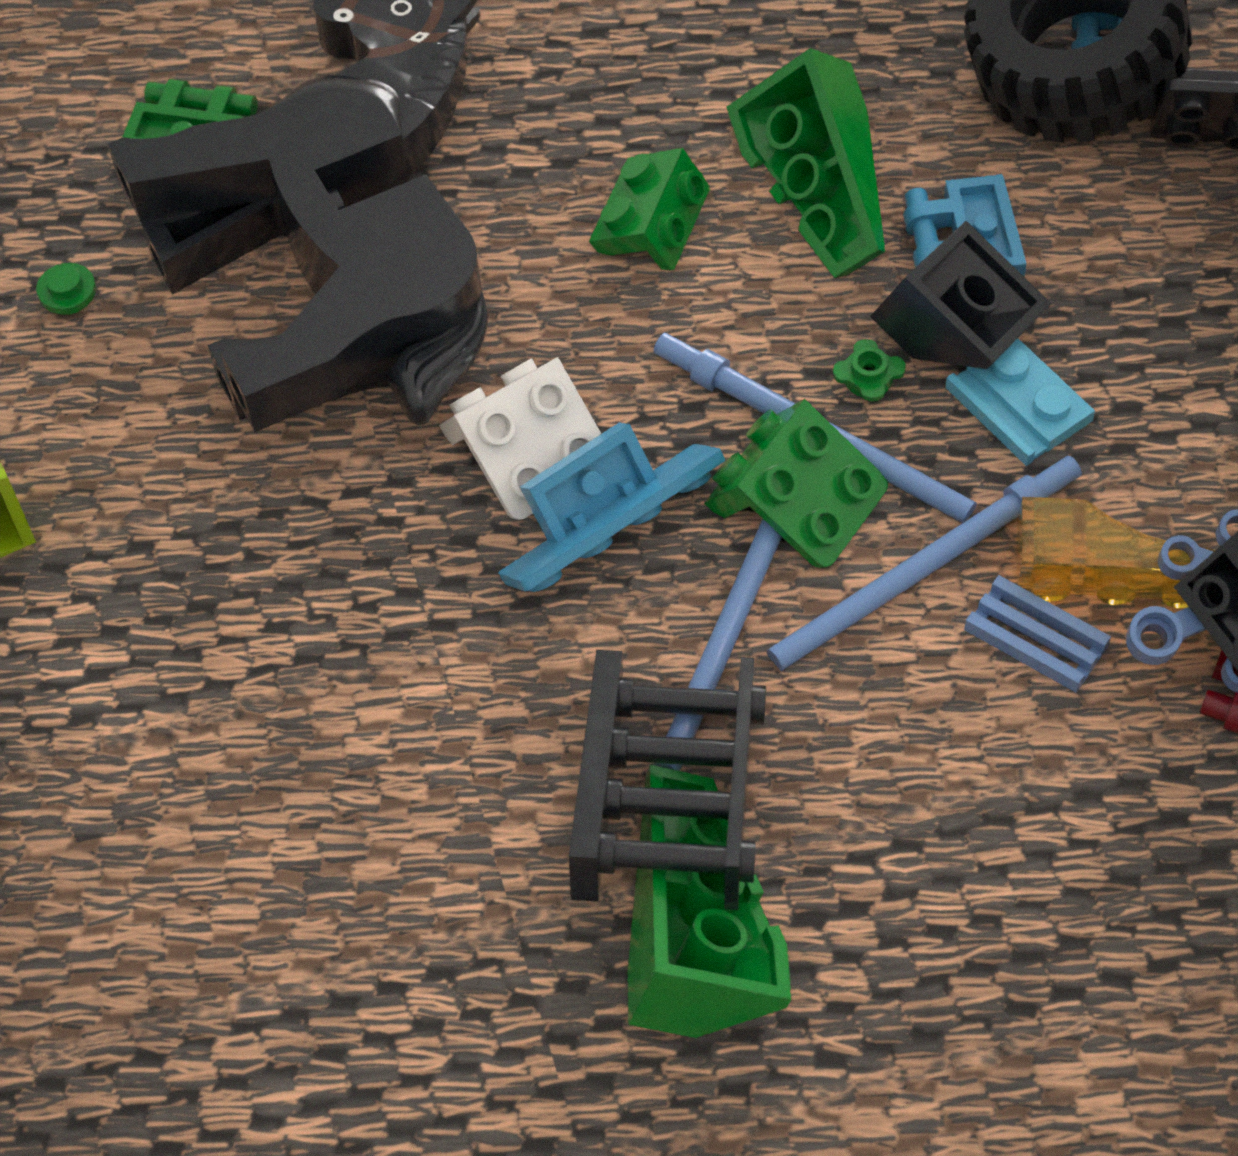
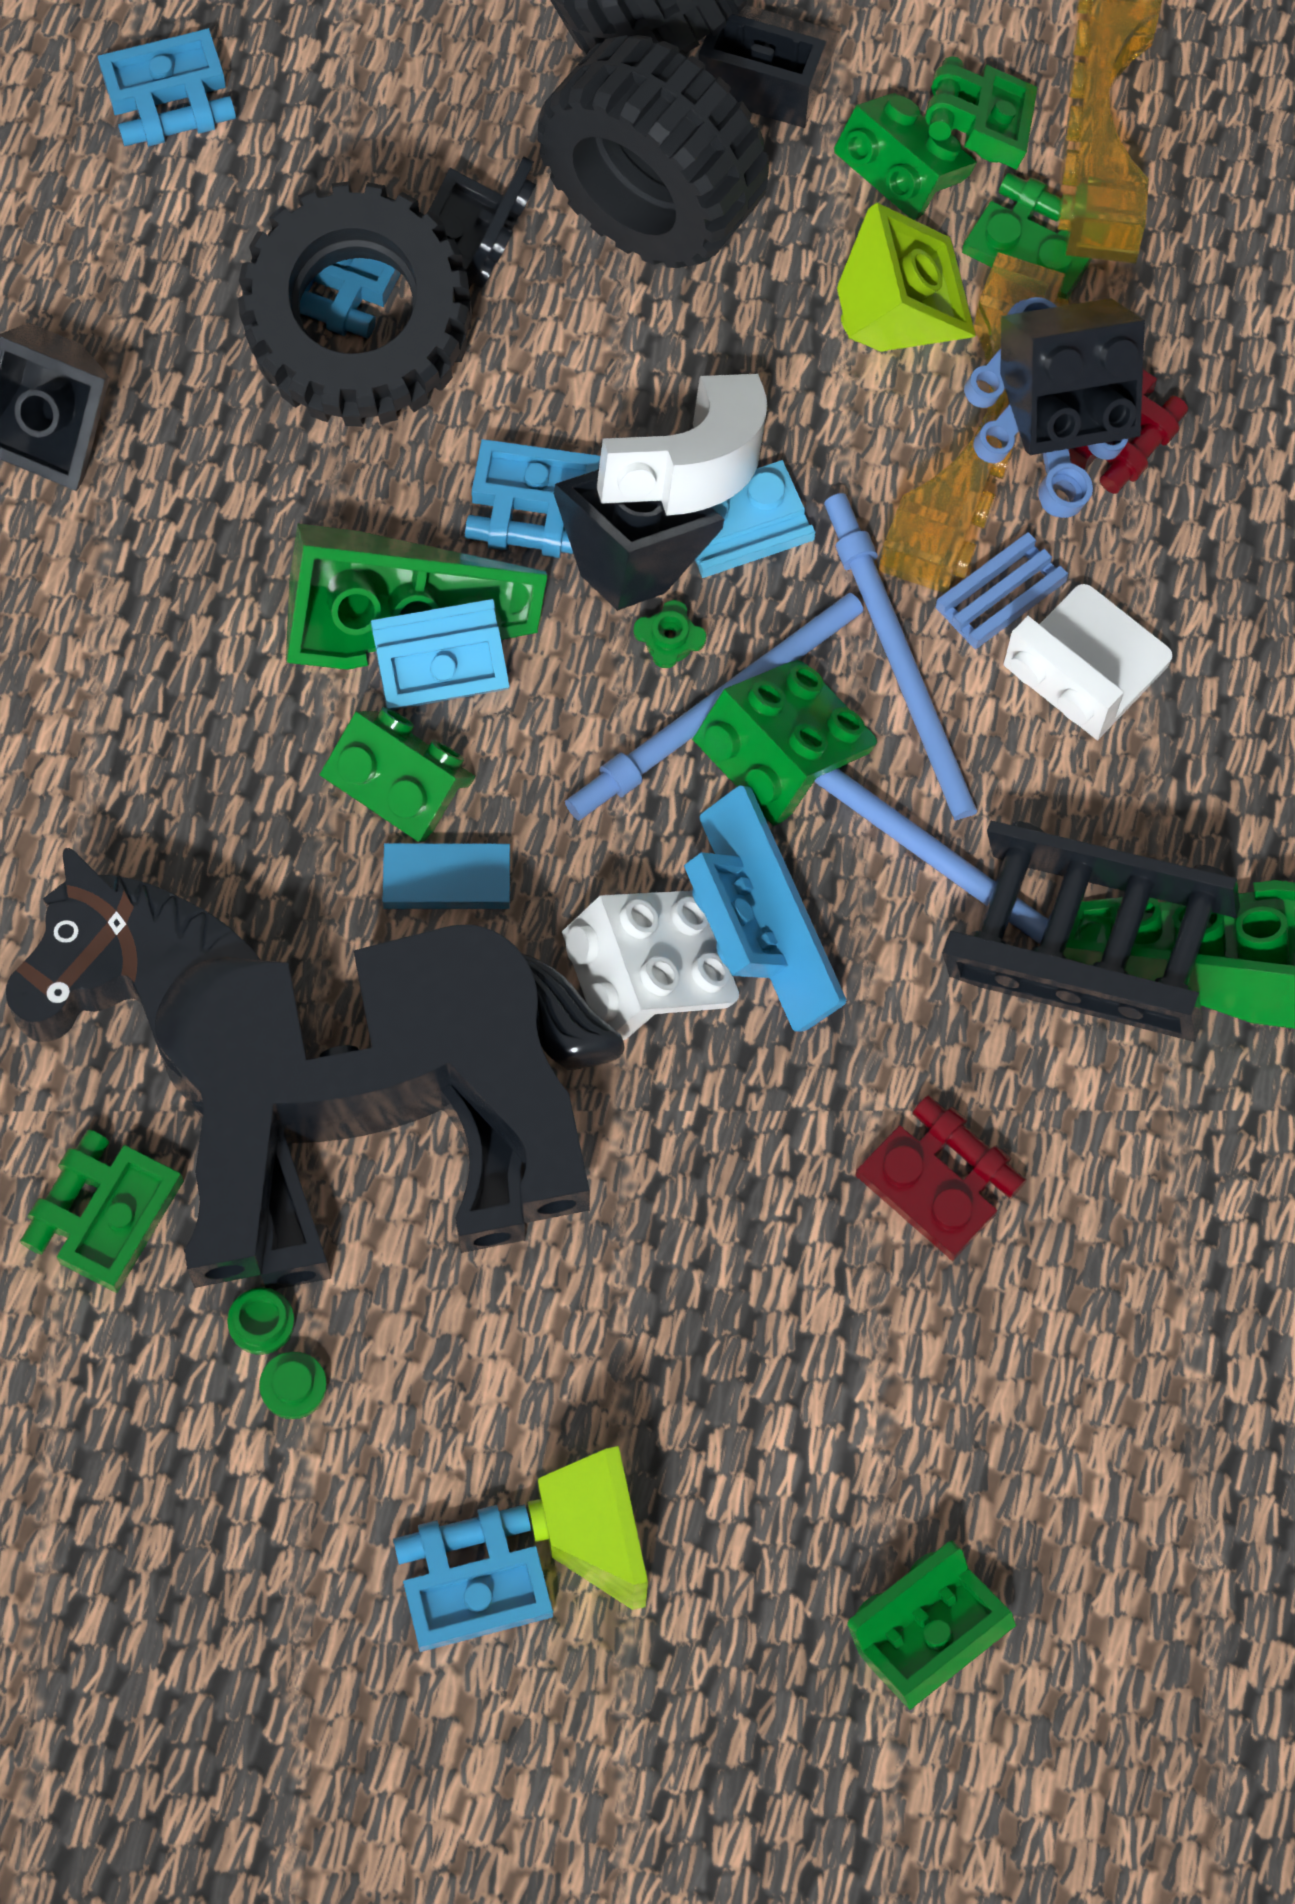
camera: 80 degrees left, 10 degrees up
(118, 252) = (261, 1321): none -> green plate
(364, 715) = (927, 1190): none -> dark red plate
(565, 272) = (446, 876): none -> dark azure tile
(771, 202) = (440, 655): none -> medium azure plate
(982, 720) = (1087, 659): none -> white bracket
(1049, 331) = (695, 466): none -> white arch

